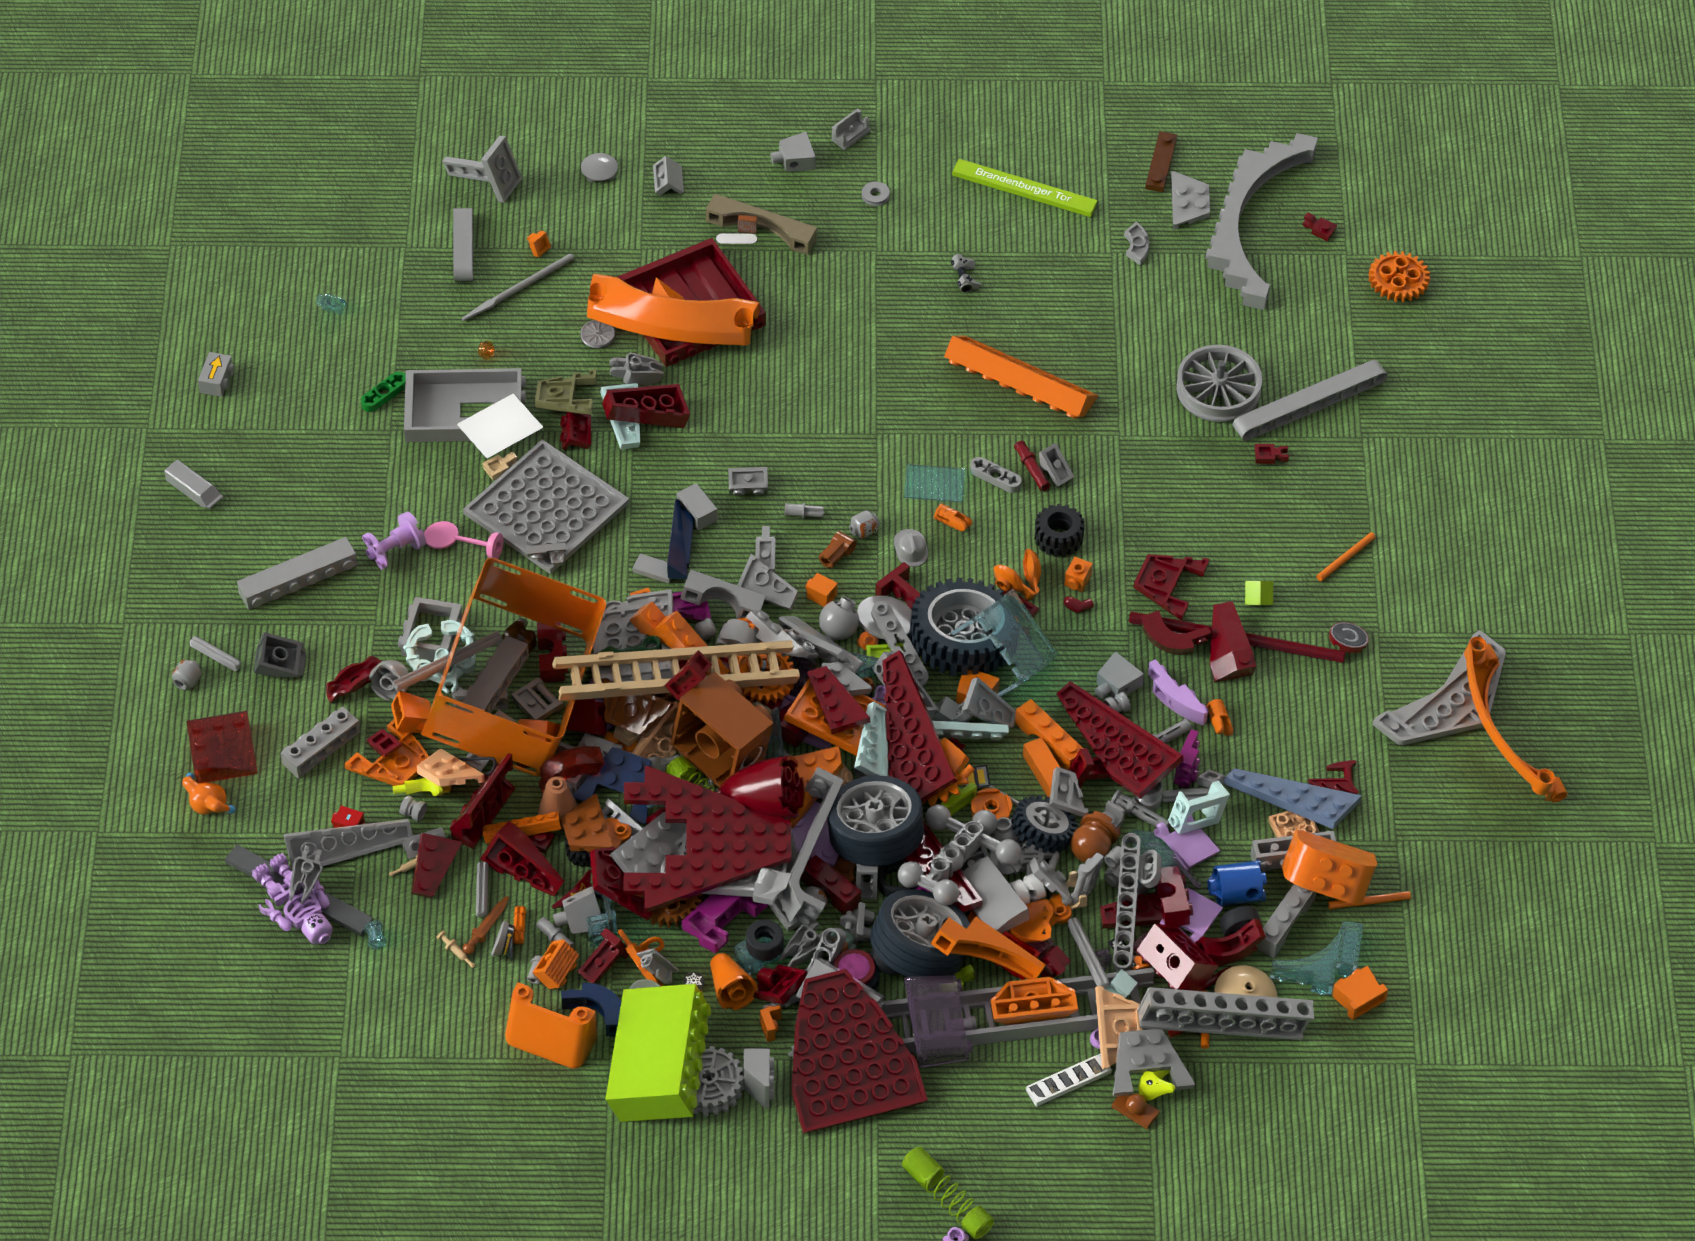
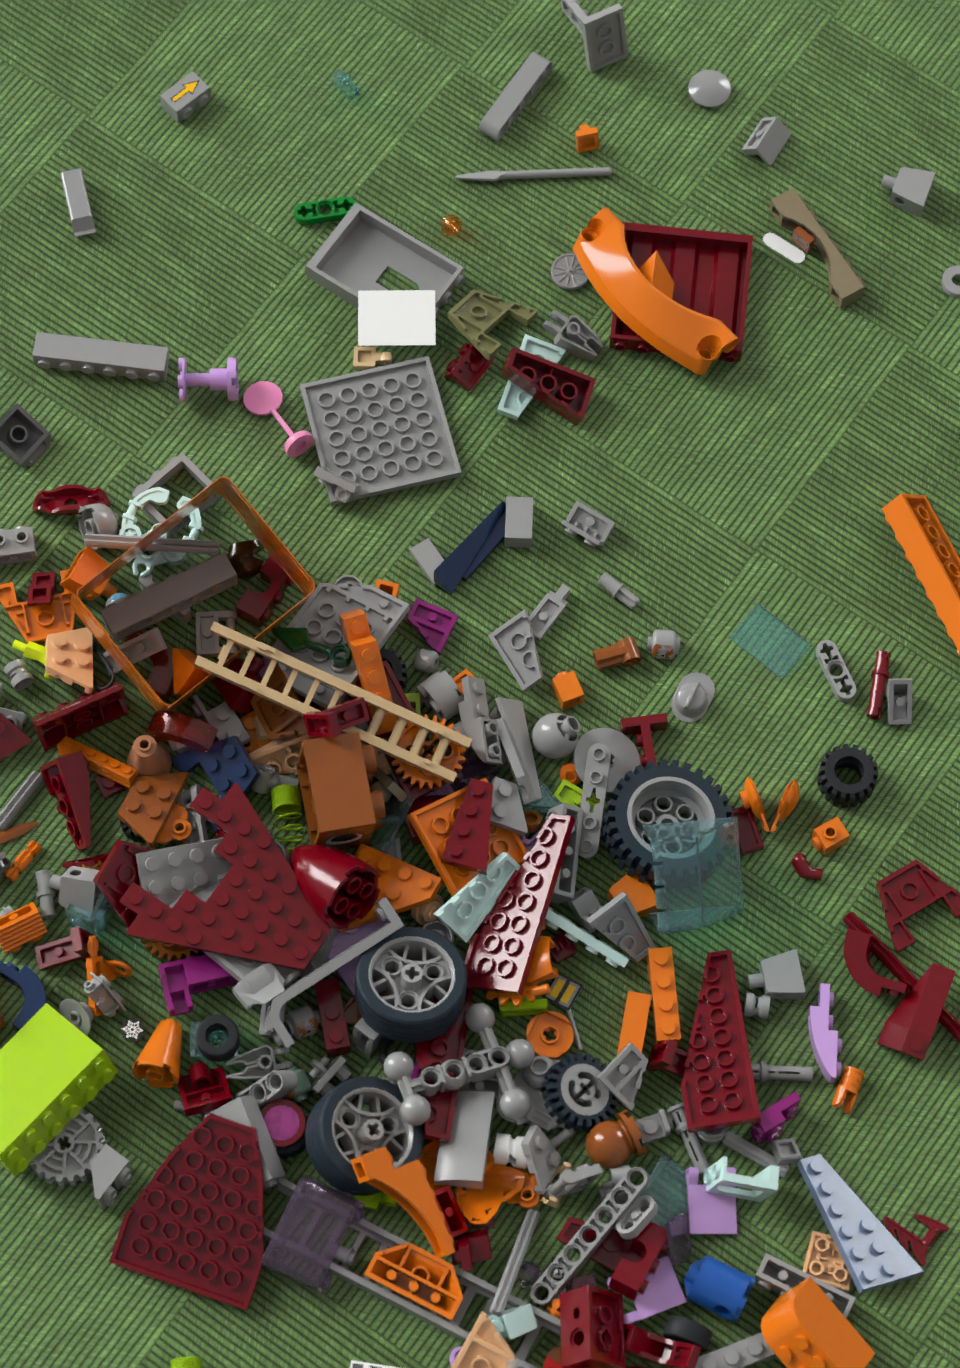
camera: 35 degrees right, 15 degrees up
(704, 587) = (449, 615): light grey arch -> none
(768, 1021) = (164, 1125): orange bracket -> none
(952, 517) = (755, 692): orange hinge -> none

